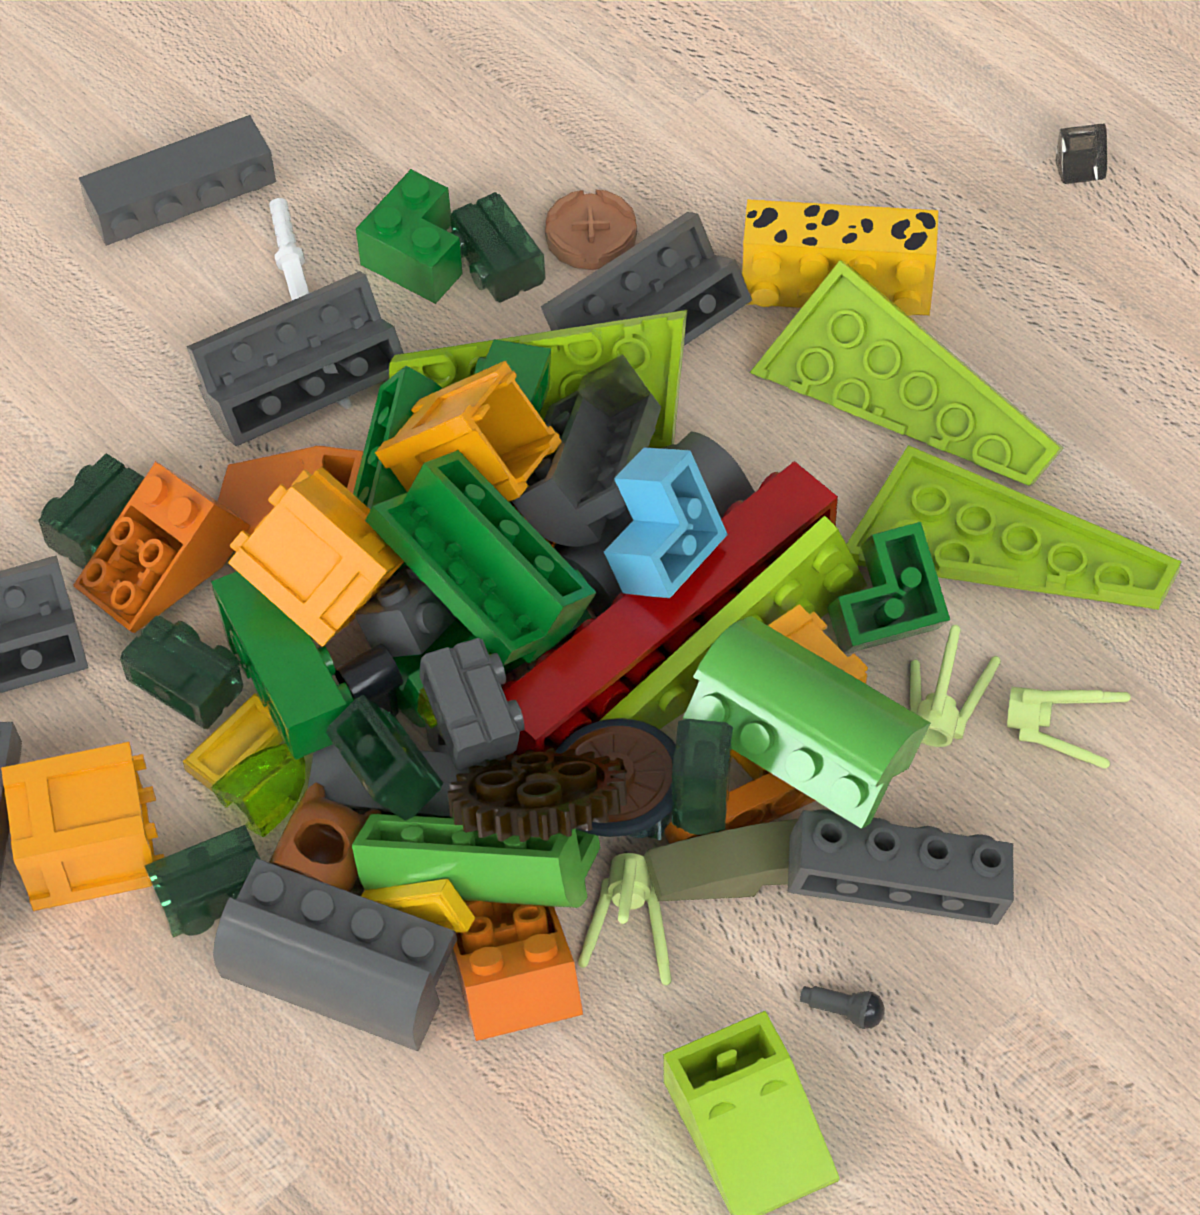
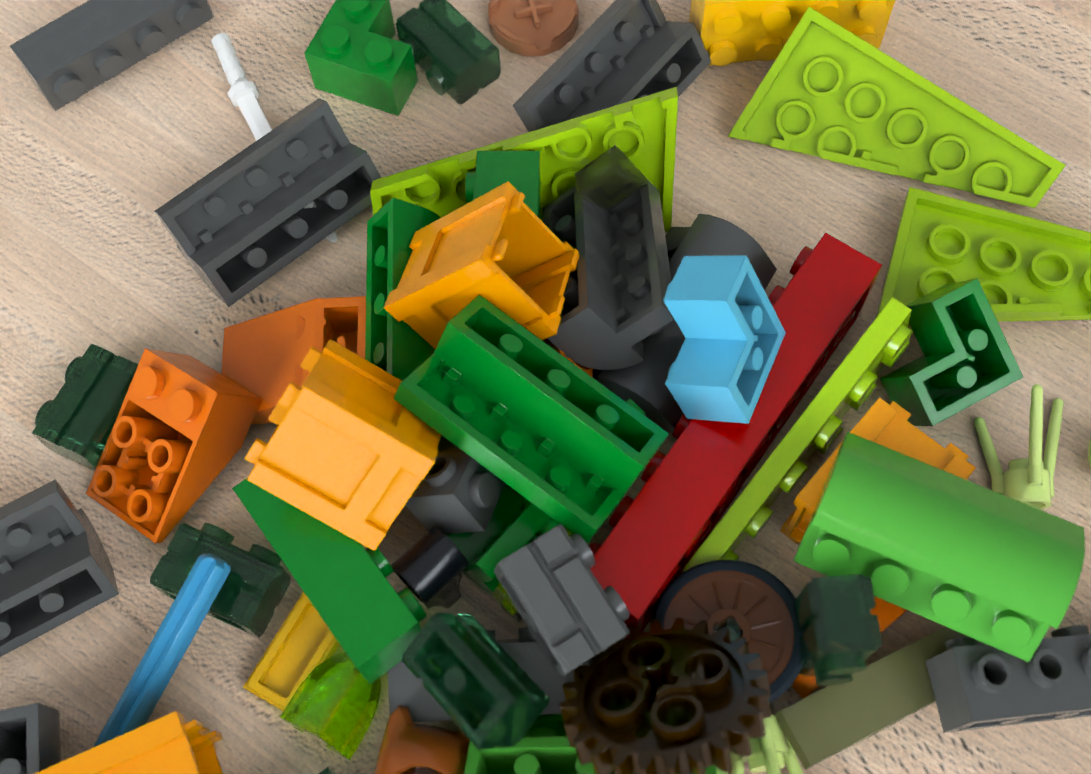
camera: 10 degrees left, 10 degrees up
(138, 694) = (167, 647): none -> dark azure axle

